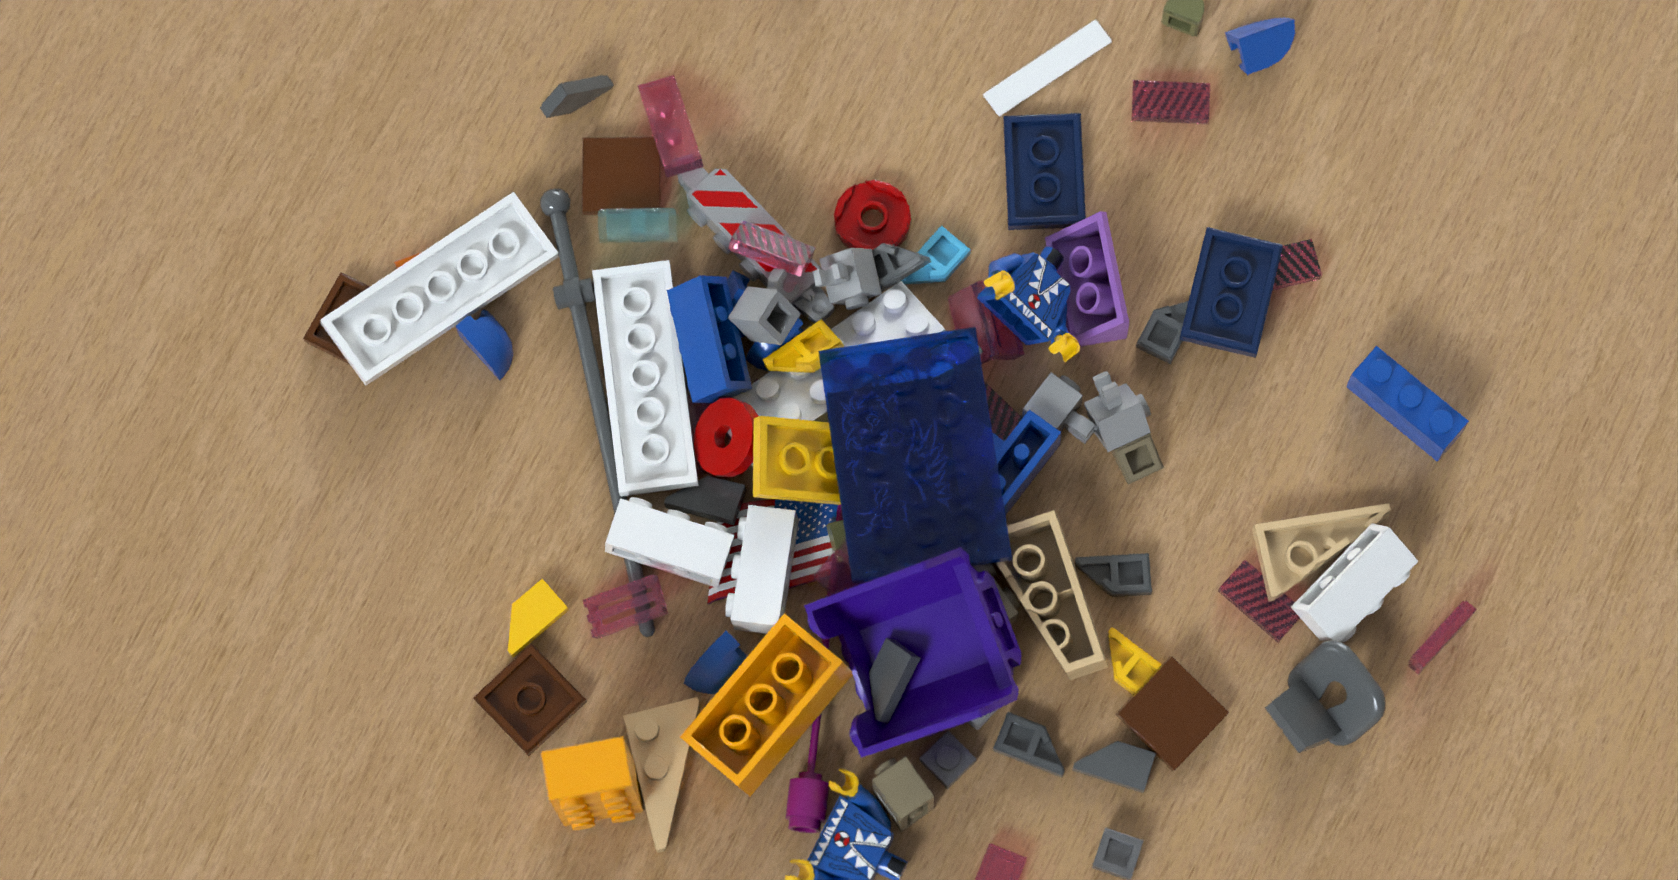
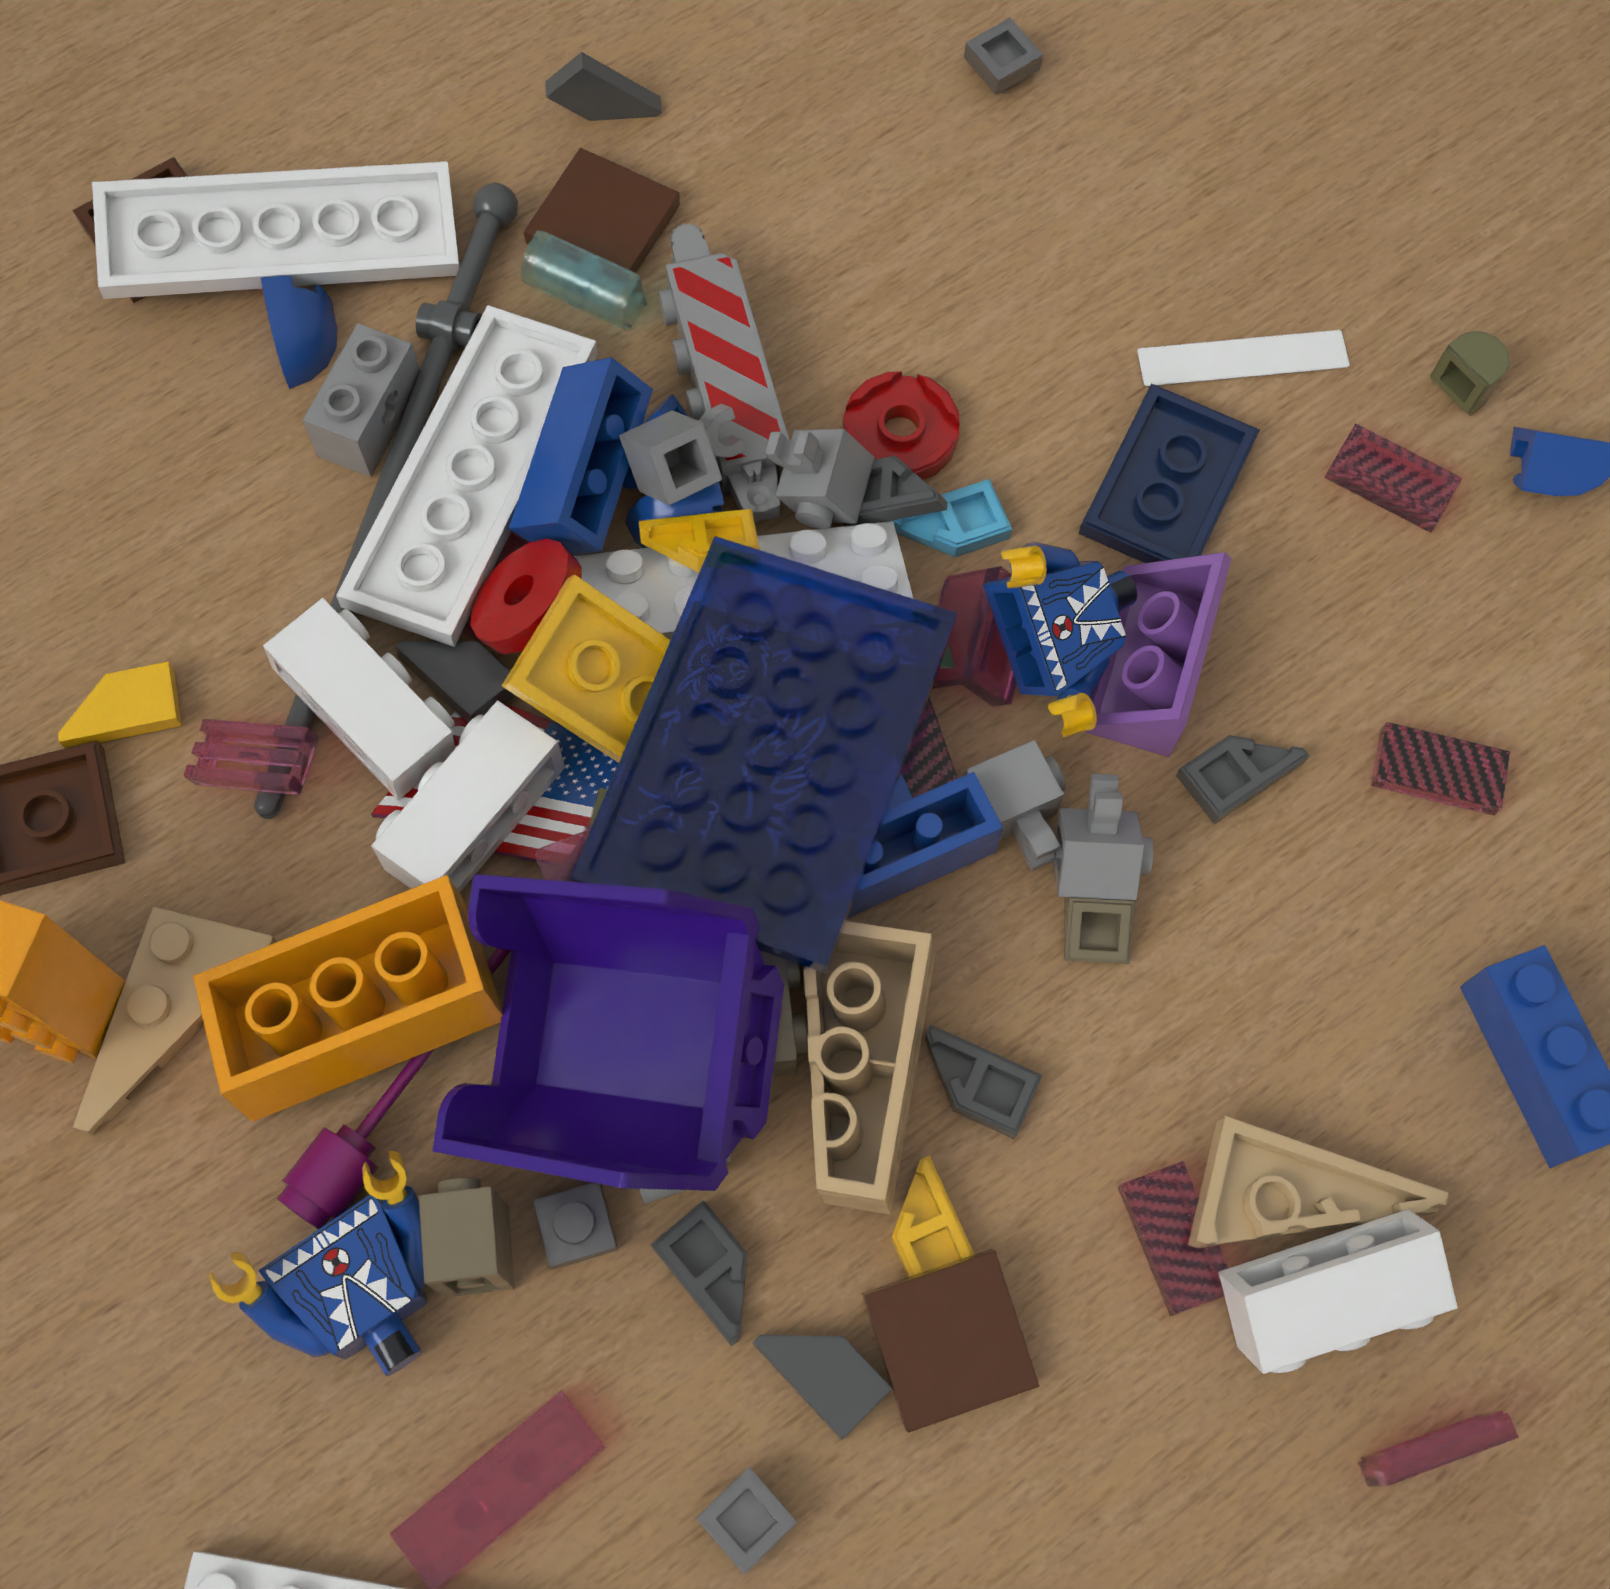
camera: 20 degrees right, 5 degrees down
(557, 367) = (362, 400): none -> light grey brick
(670, 126) = (697, 181): clear pink tile -> none
(715, 665) = (324, 897): blue brick -> none
(771, 248) = (733, 378): clear pink tile -> none
(890, 677) = (554, 1055): dark grey tile -> none
(1231, 292) = (1355, 765): dark blue tile -> none
(1305, 718) = (1154, 1461): dark grey piece -> none

